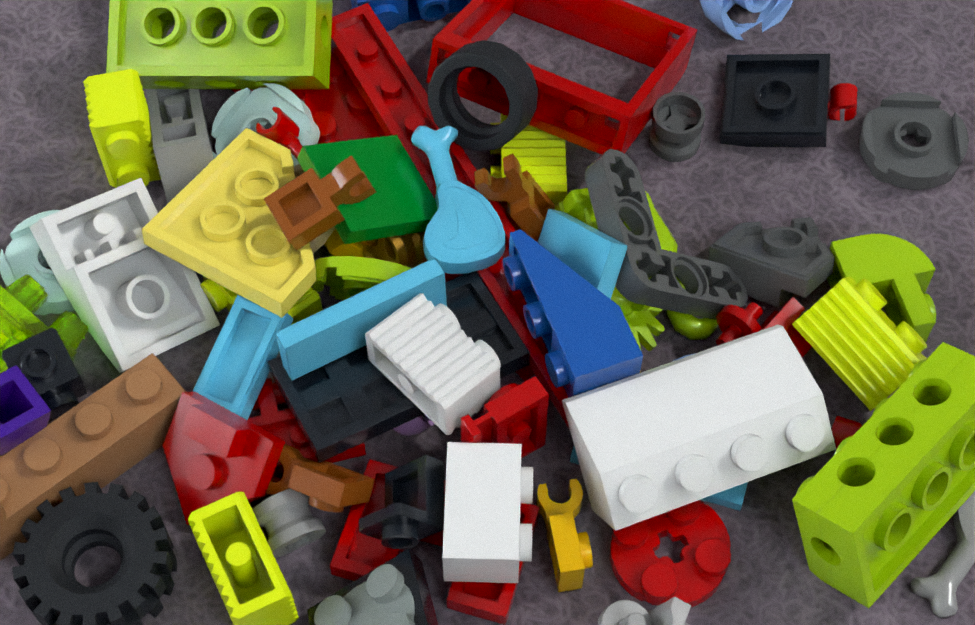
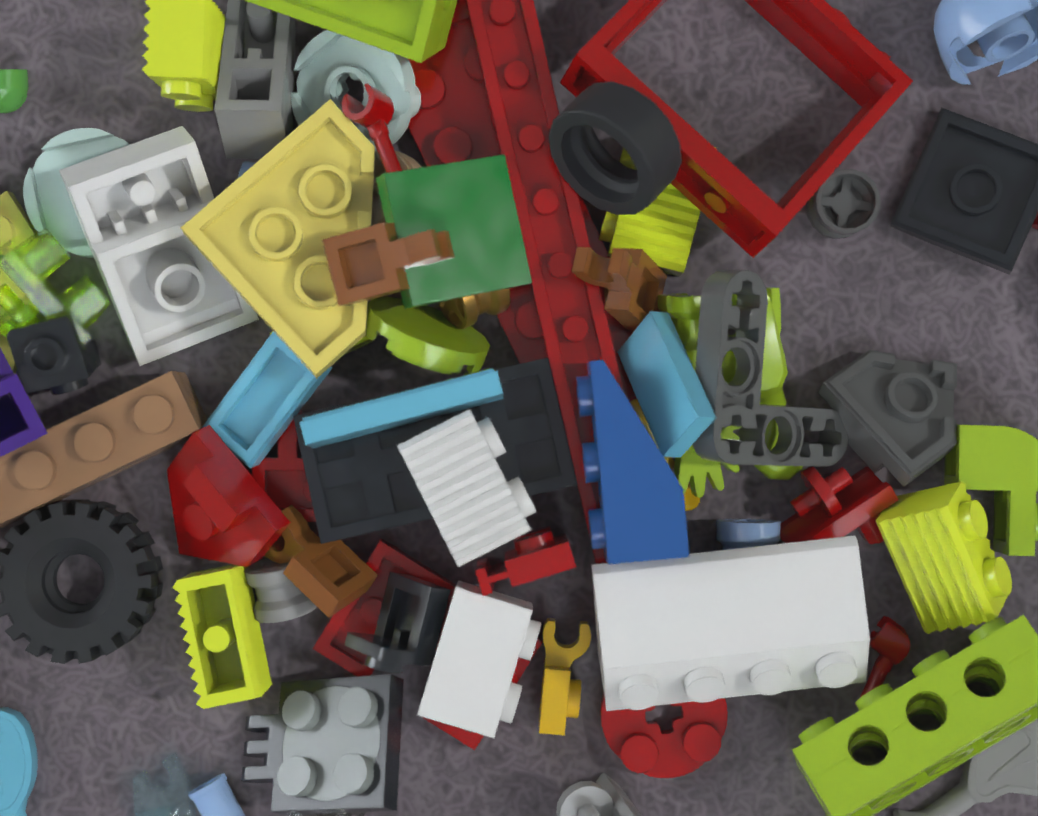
camera: 20 degrees right, 30 degrees up
(466, 228) = (549, 313): medium azure piece -> none

